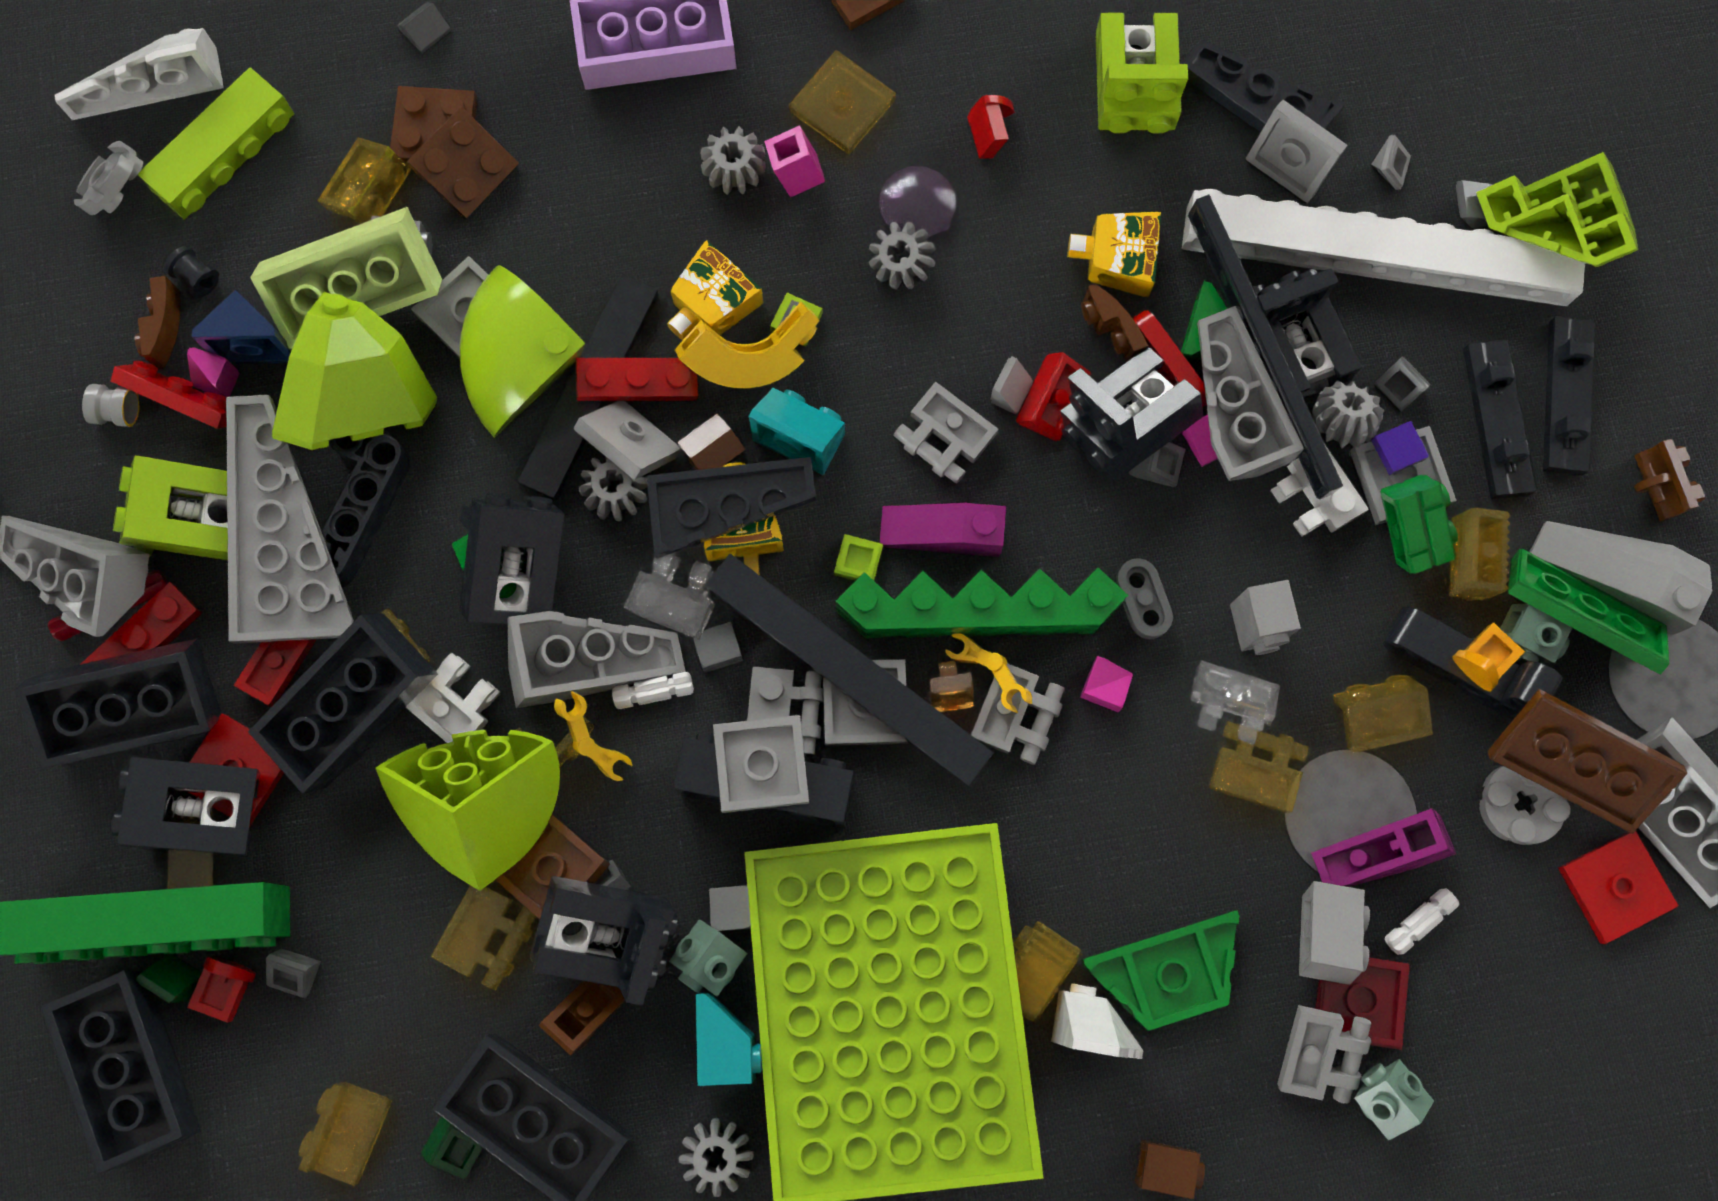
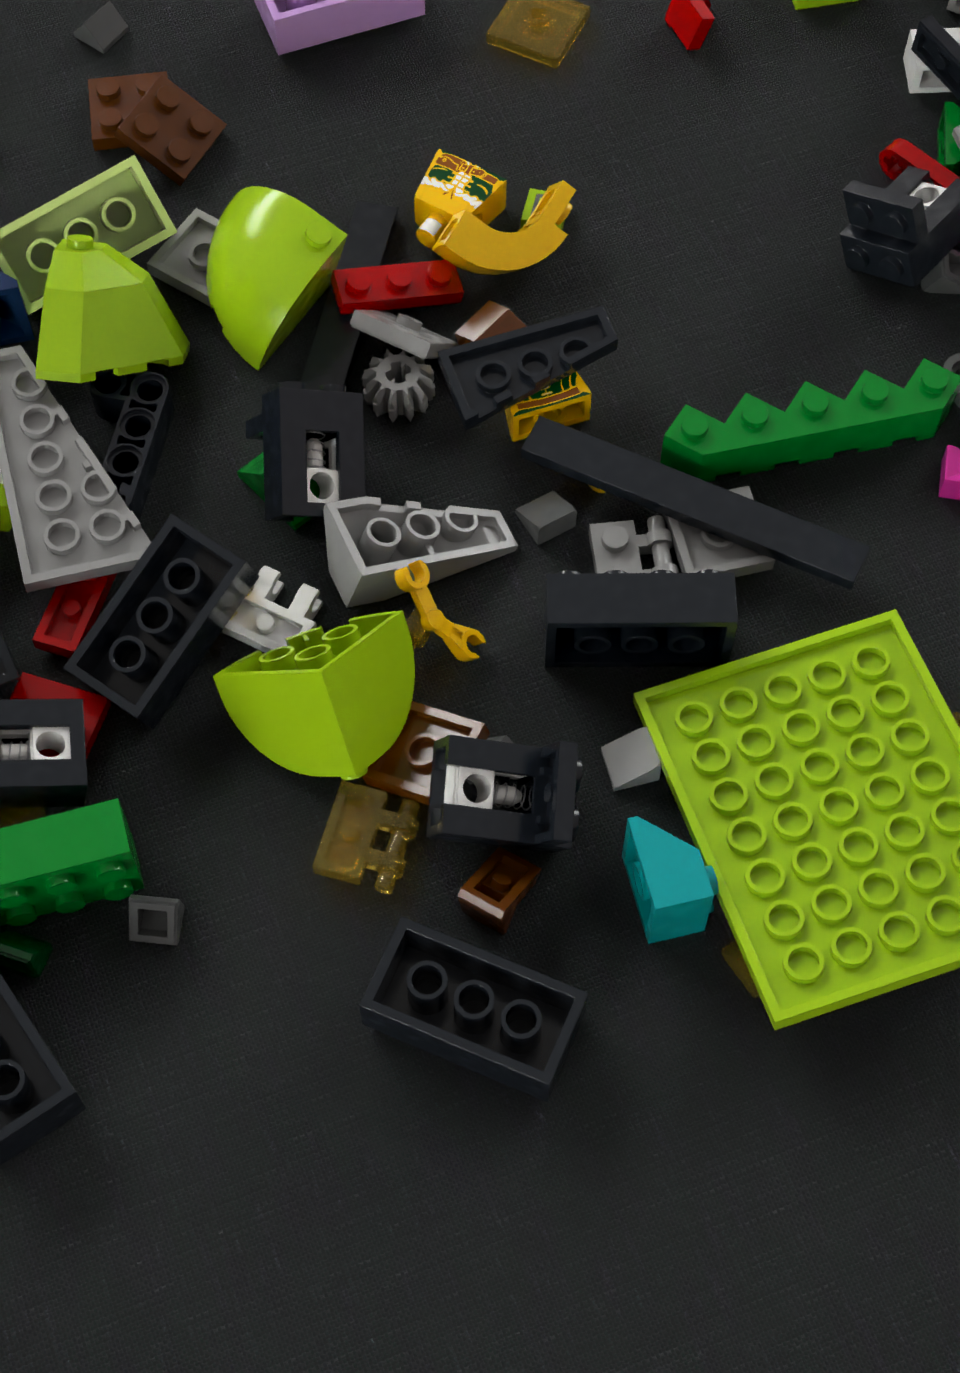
camera: 10 degrees left, 15 degrees down
(220, 988) = (78, 948): red tile -> none
(344, 1132) = (254, 1074): clear yellow bracket -> none
(365, 181) = (70, 159): clear yellow bracket -> none
(451, 1149) = (382, 1066): dark green slope -> none
(652, 690) = (488, 567): white axle -> none
(670, 604) = (484, 482): clear plate -> none
(701, 1160) = (706, 1010): light grey gear -> none
(707, 959) = (615, 798): sand green brick -> none
(733, 146) = (444, 85): light grey gear -> none
(761, 764) = (637, 576): light grey plate -> none
(794, 161) = (509, 71): dark pink brick -> none
(797, 429) = (566, 291): teal slope -> none
(857, 557) = (665, 407): lime tile -> none
(908, 267) = (641, 120): light grey gear -> none
(918, 197) = (637, 94): clear purple dish -> none
(945, 528) = (756, 362): magenta slope -> none
(951, 690) = (808, 501): clear orange tile -> none
(954, 424) = (731, 271): light grey plate -> none
(997, 664) = (844, 469): yellow piece -> none
(999, 726) = (866, 512): light grey plate -> none
(1011, 386) = (780, 230): light grey slope -> none
(1048, 396) = (819, 234): red slope -> none
(1108, 315) = (861, 152): reddish brown slope -> none
(1121, 251) = (853, 98): torso -> none

